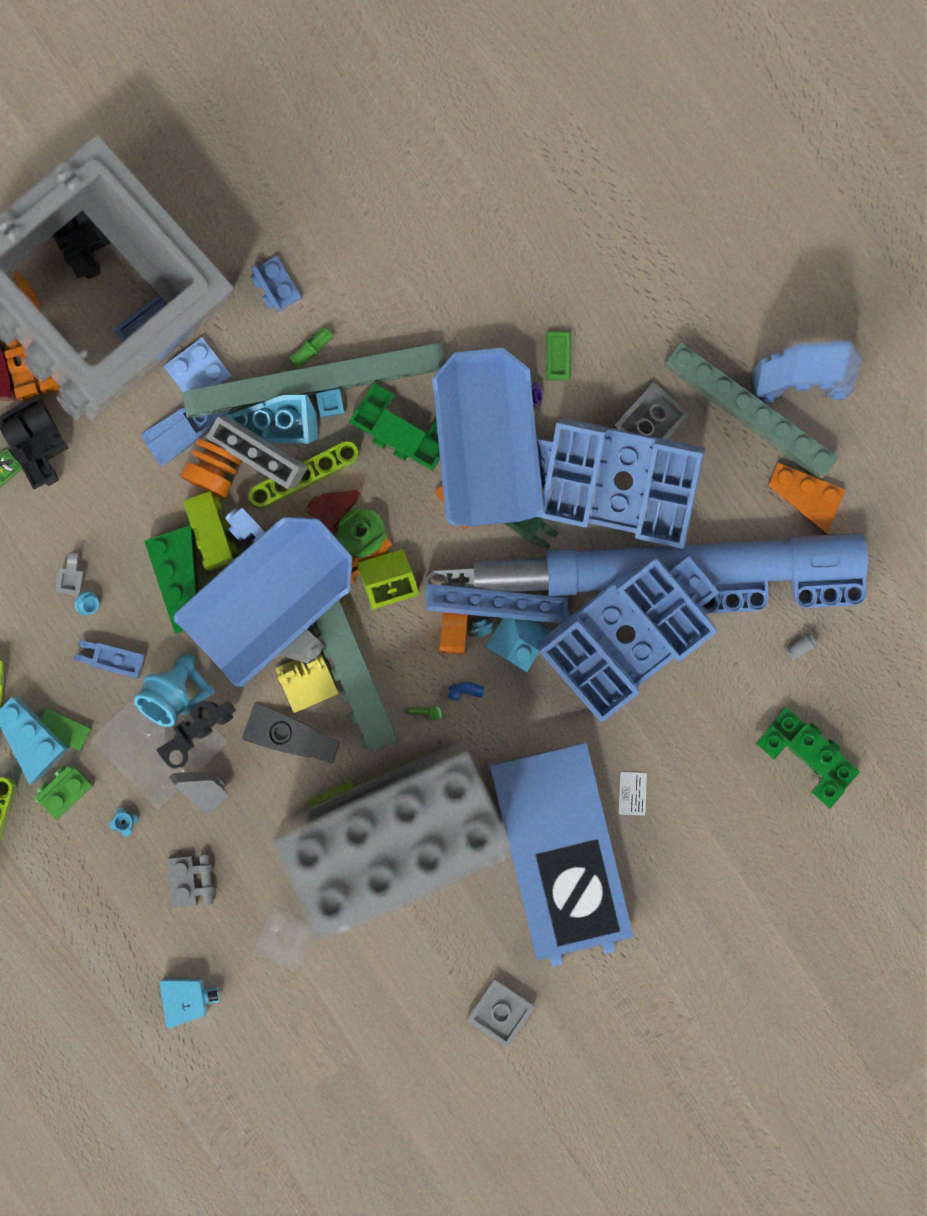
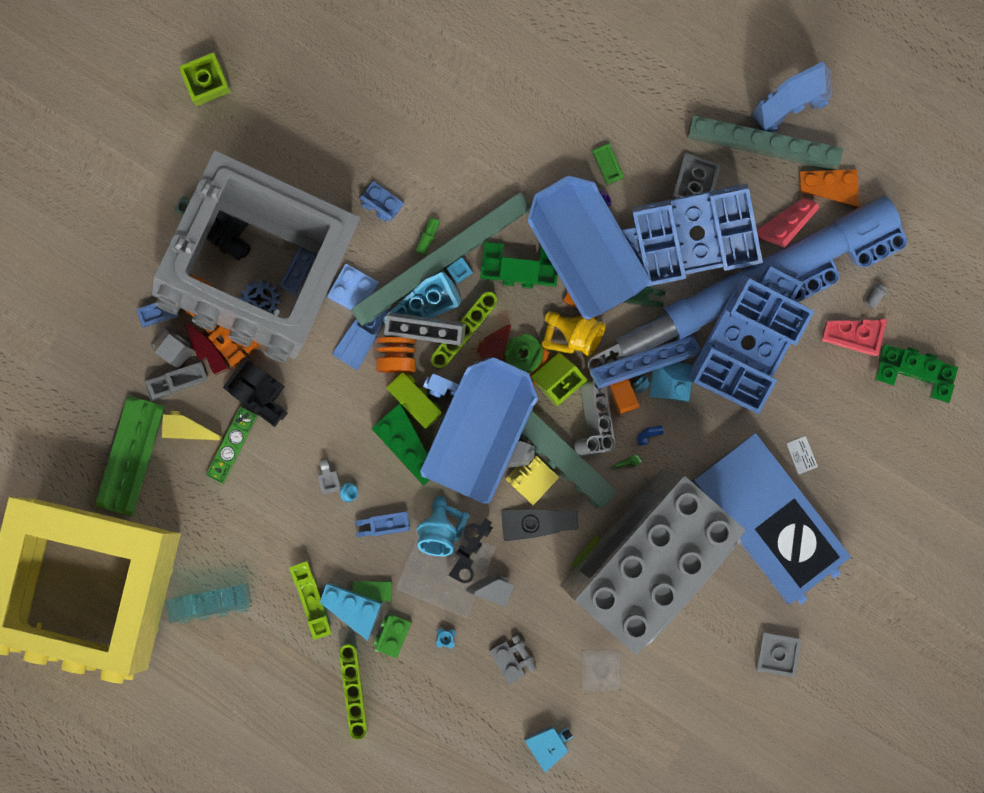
camera: 20 degrees left, 0 degrees up
(89, 328) = (260, 291): none -> medium blue gear
(134, 52) = (204, 79): none -> lime brick
(409, 641) = (598, 421): none -> light grey beam
(435, 536) = (580, 333): none -> yellow piece
(735, 516) = (788, 223): none -> coral wing
(759, 683) = (856, 335): none -> coral wing

